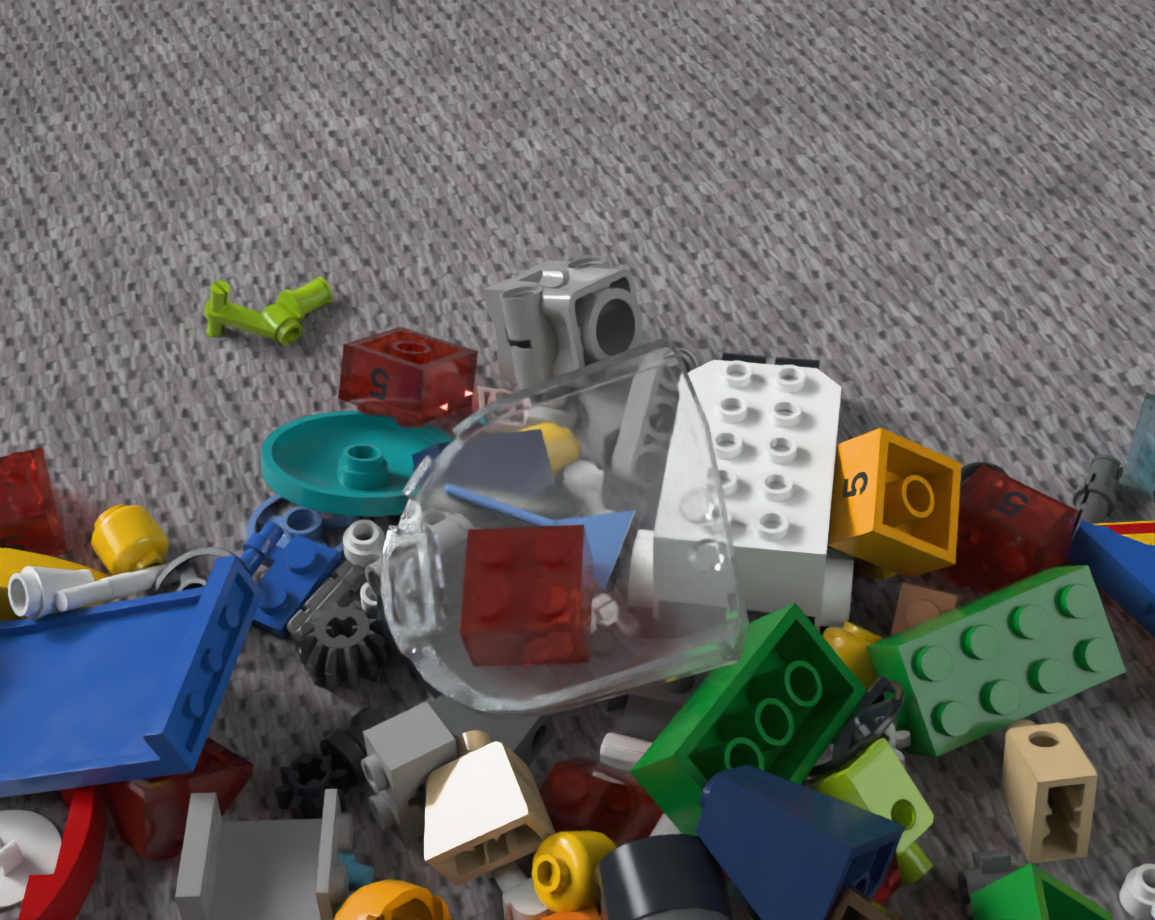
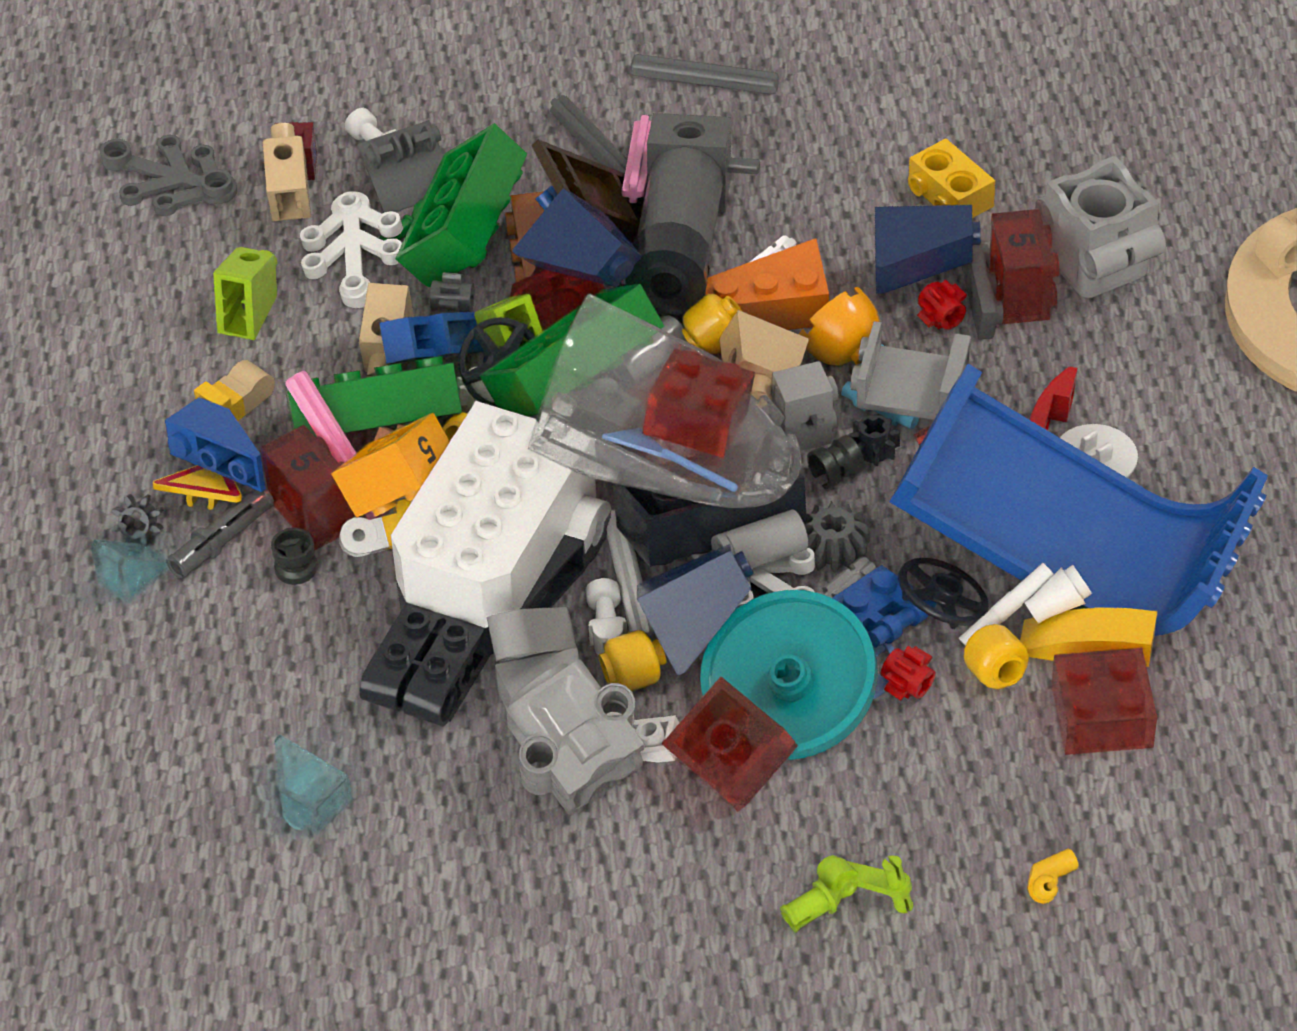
camera: 165 degrees left, 5 degrees up
(75, 367) = (1045, 874): none -> yellow arm
(230, 502) = (908, 673): none -> red gear
(827, 296) = (309, 787): none -> clear light blue slope
(971, 765) = (427, 336): none -> blue slope
(1010, 566) = (322, 419): none -> bright pink axle

